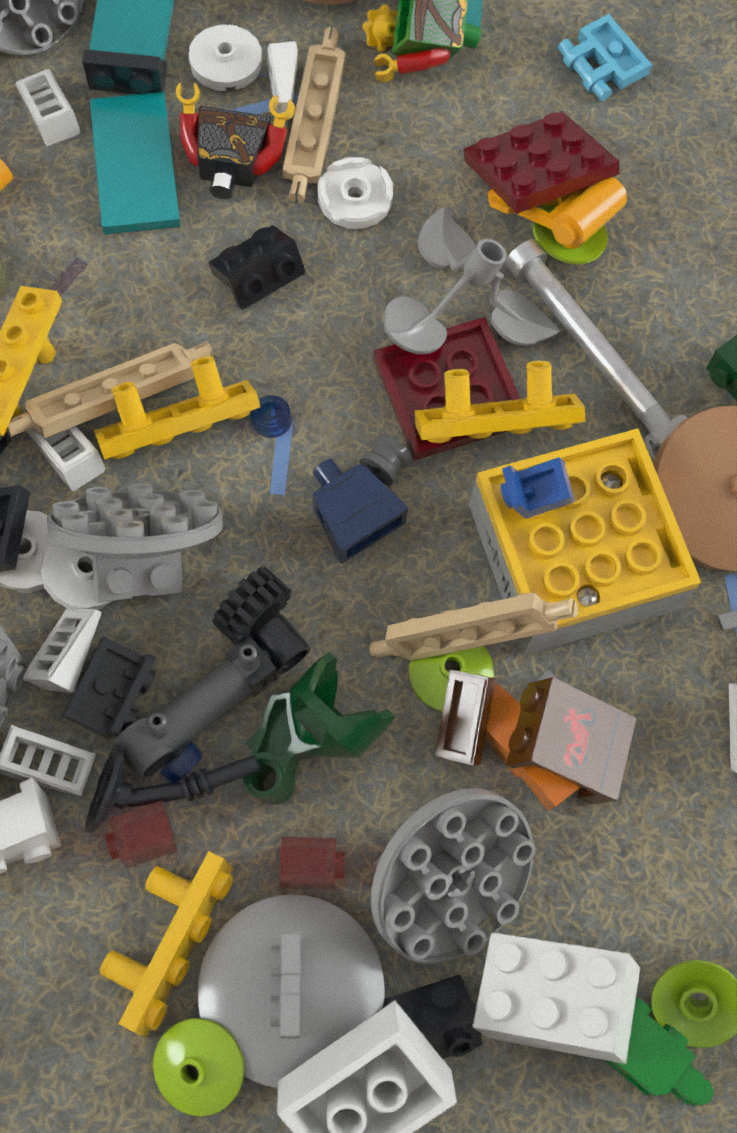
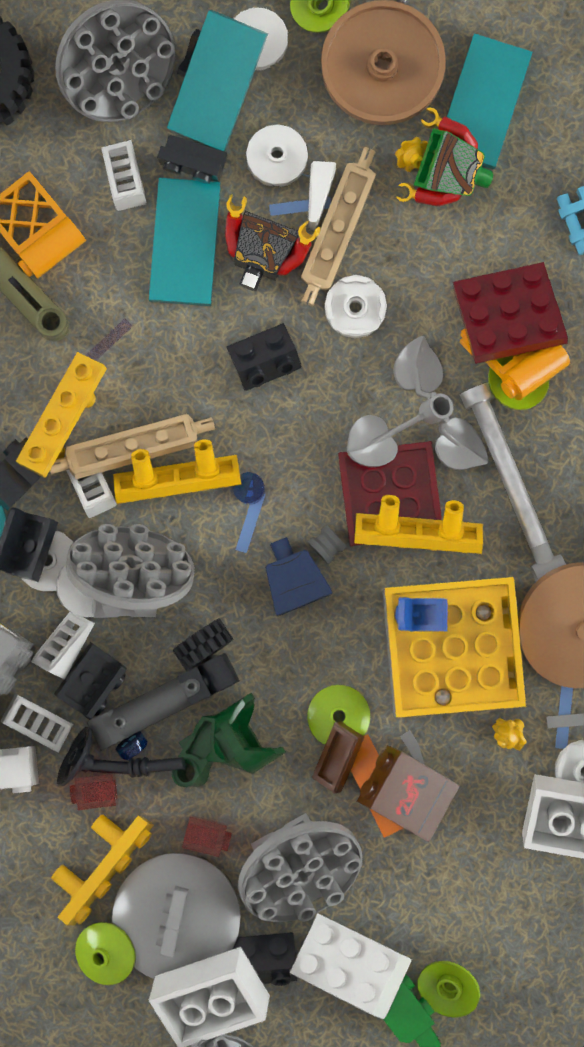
camera: 20 degrees right, 15 degrees up
(473, 627) = (345, 698): tan plate -> none
(679, 643) = (509, 733): none -> yellow plant

